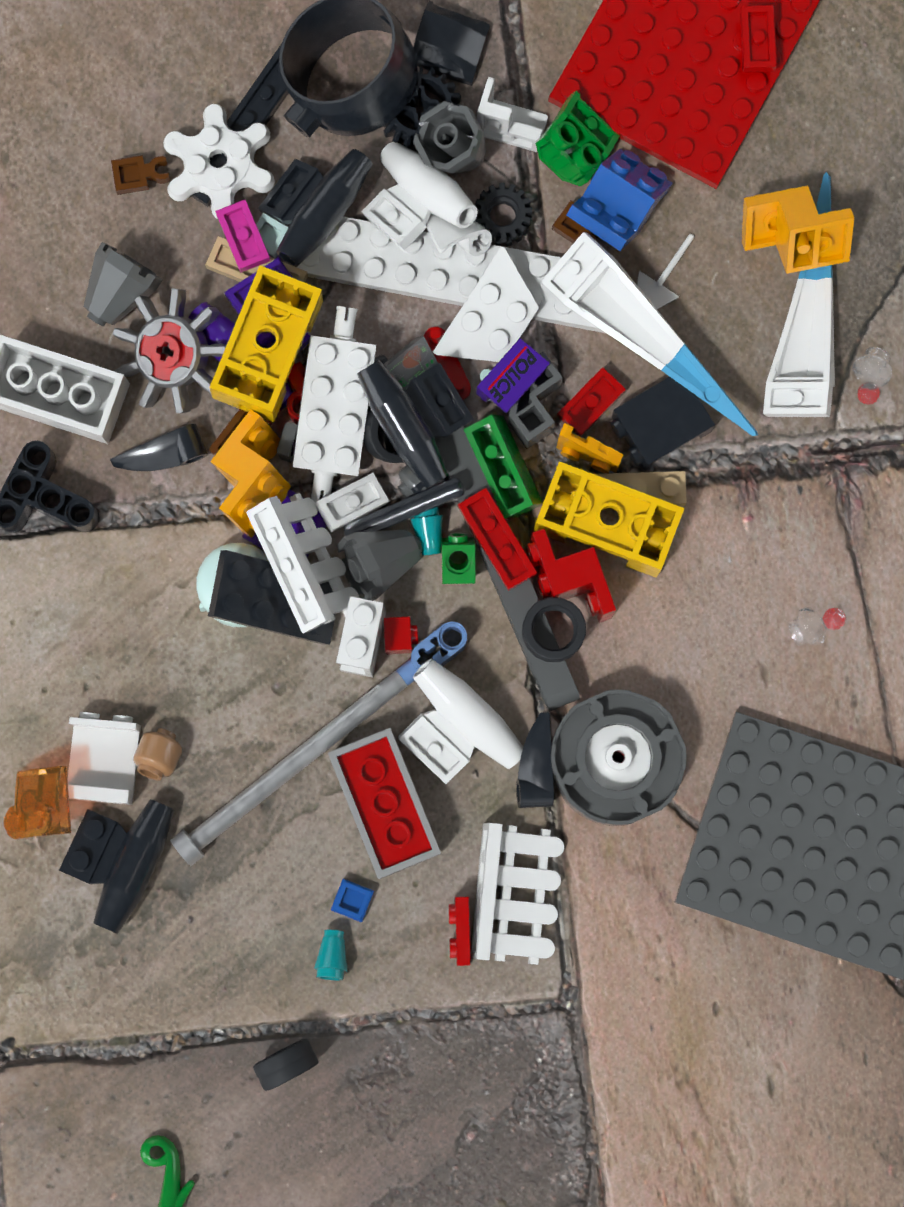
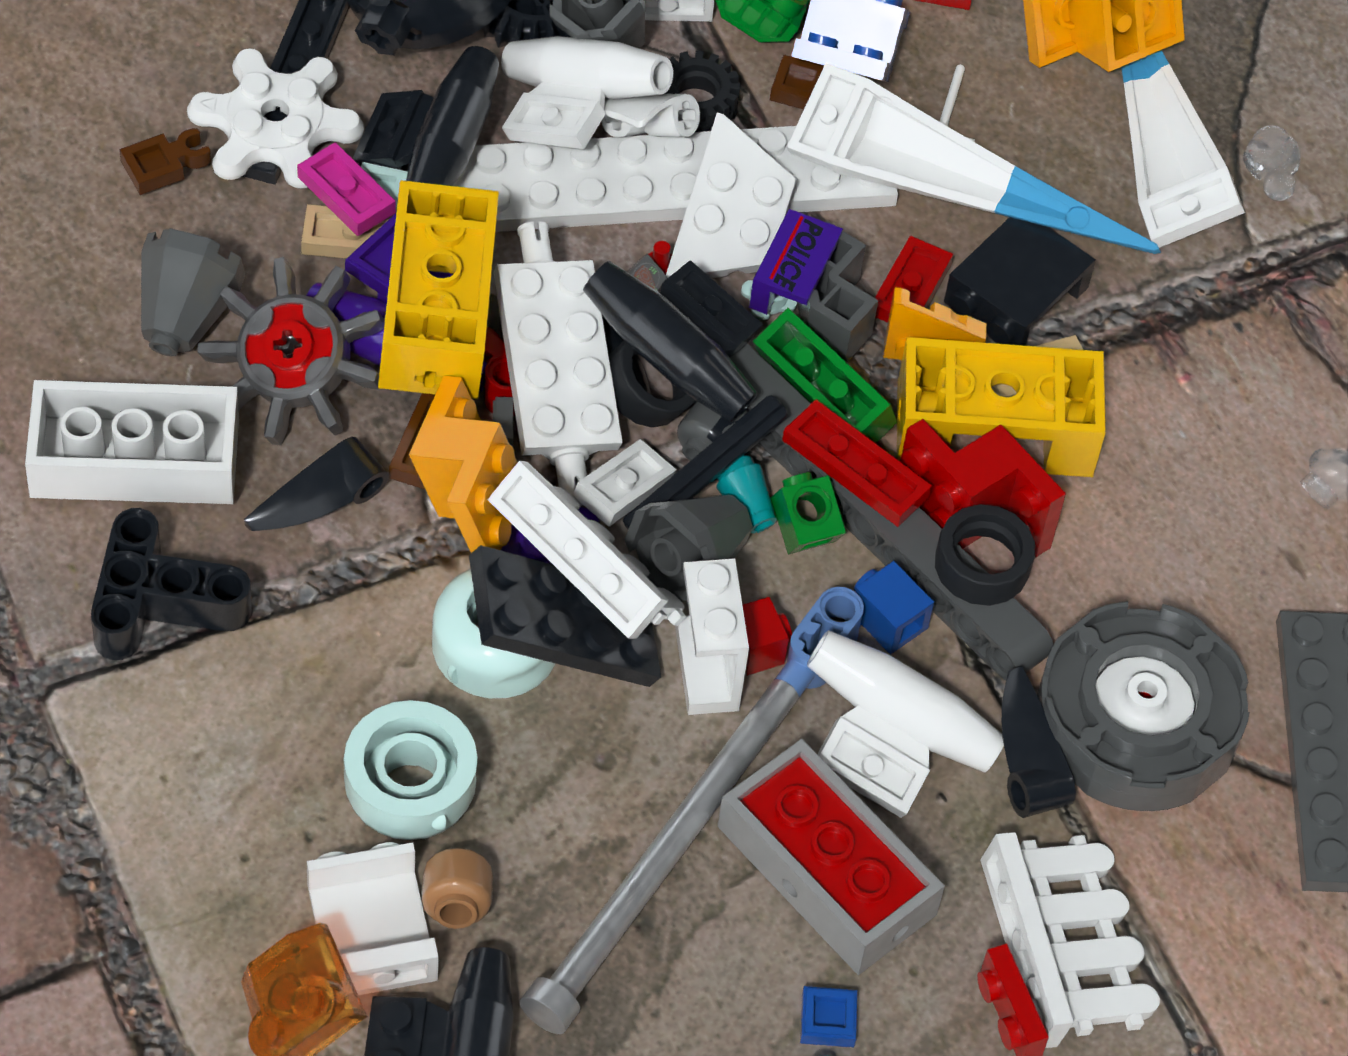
camera: 25 degrees left, 25 degrees down
(126, 660) = (414, 736): none -> light aqua piece
(488, 637) = (893, 606): none -> blue brick

